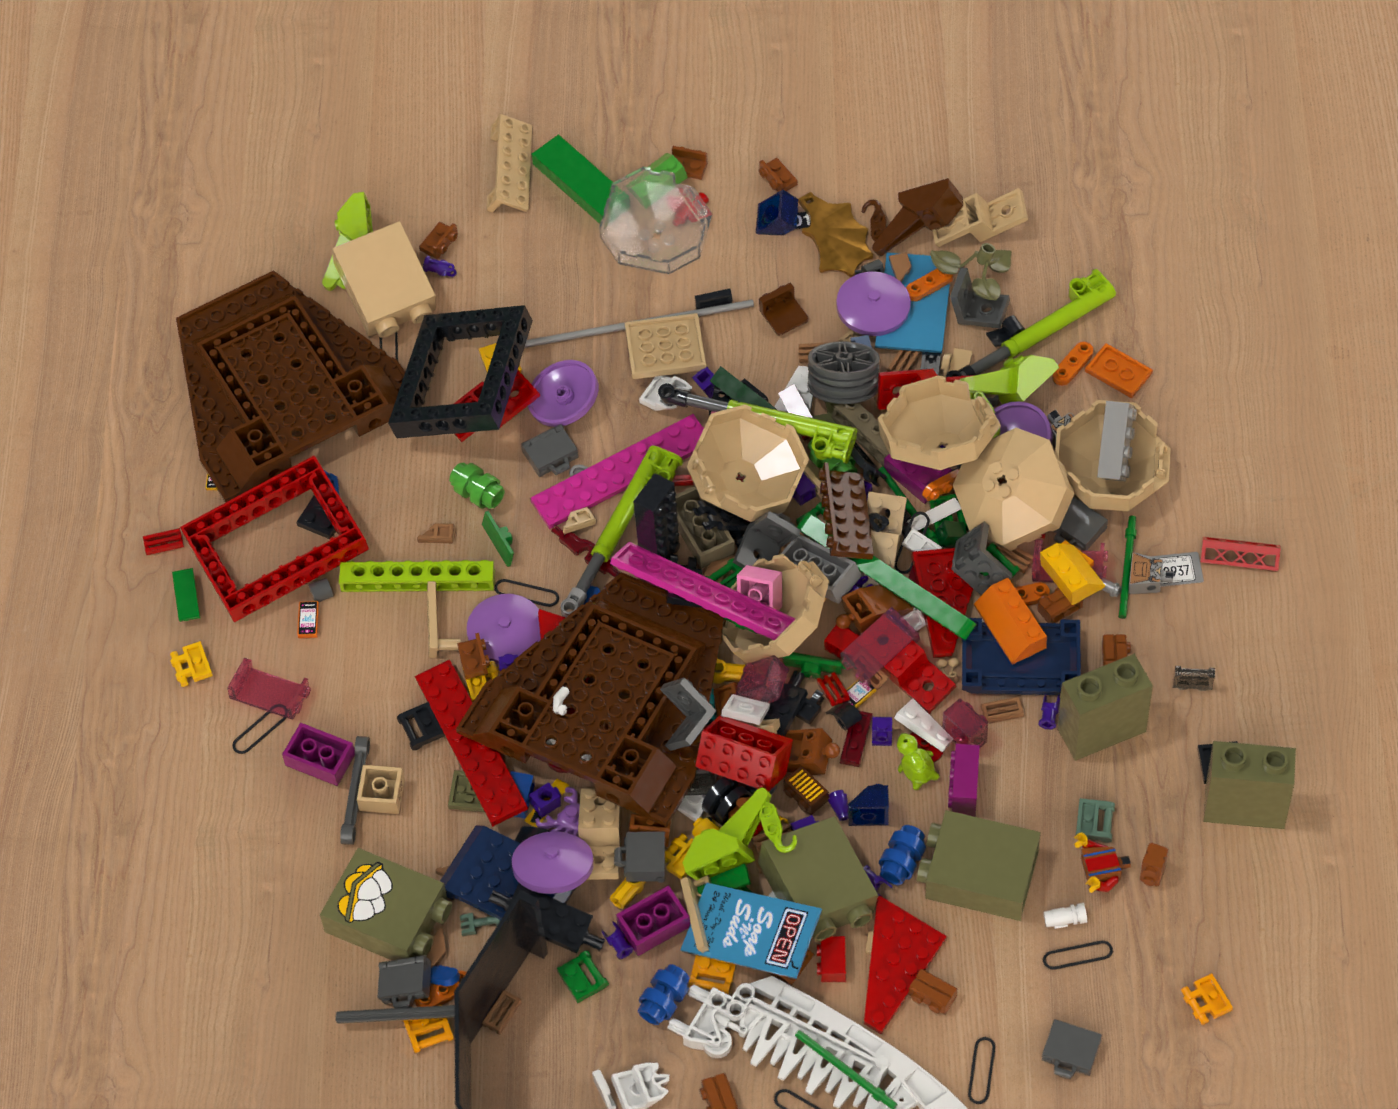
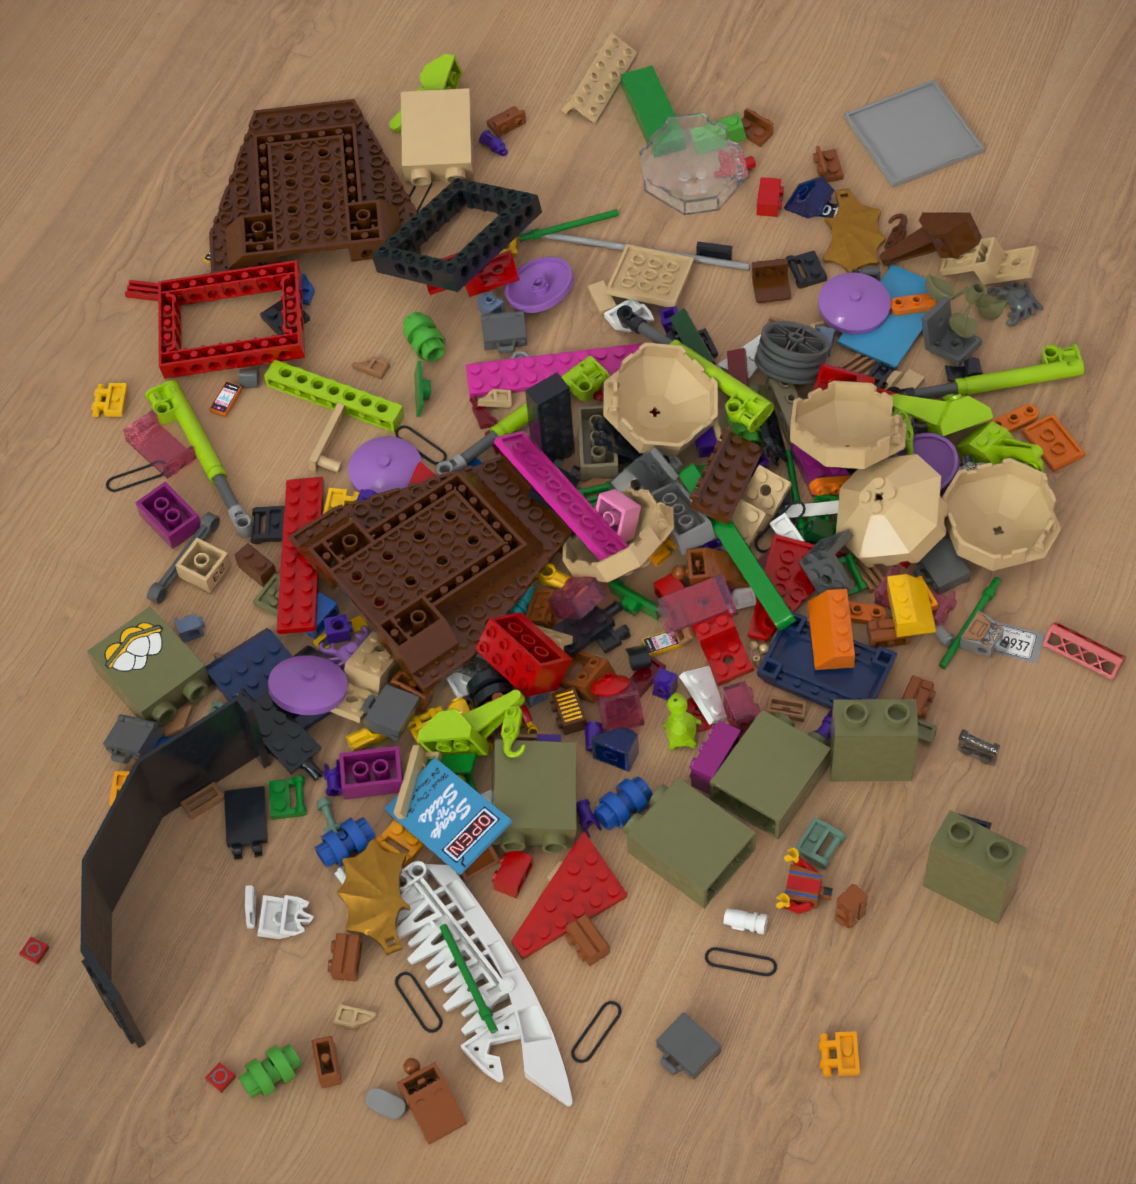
camera: 25 degrees right, 0 degrees up
(186, 595) = (136, 340): green piece -> none
(255, 640) = (172, 405): none -> lime piece
(395, 1014) = (93, 759): dark grey axle -> none
(400, 852) = (190, 627): none -> sand blue brick
(431, 769) = (255, 564): none -> reddish brown brick
(473, 657) = (341, 482): dark orange bracket -> none
(522, 430) = (490, 304): none -> sand blue brick
(532, 343) = (536, 233): none -> green bar
(554, 1013) = (246, 820): none -> black tile
(558, 699) = (377, 549): white arm -> none
(622, 969) = (324, 805): none -> sand green hinge
(626, 384) = (601, 300): none -> tan tile
(693, 706) = (495, 591): dark grey bracket -> none
(719, 1031) = (374, 894): none -> pearl gold animal
(738, 227) = (769, 197): none -> red brick
(745, 709) = (547, 616): white tile -> none
(813, 283) = (811, 267): none -> black plate
(828, 680) = (641, 621): red tile -> none
(837, 750) = (609, 684): none -> red dish
(842, 115) = (913, 133): none -> light grey tile
(854, 767) = (621, 709): none -> clear pink brick
(883, 522) = (756, 492): black hinge -> none
(900, 265) = (897, 279): medium nougat tile -> none
(1022, 773) = (770, 772): none -> olive brick
(1023, 245) = (1020, 300): none -> dark grey animal
(1073, 393) = (995, 443): none -> lime slope
(1116, 441) = (1009, 501): light grey brick -> none

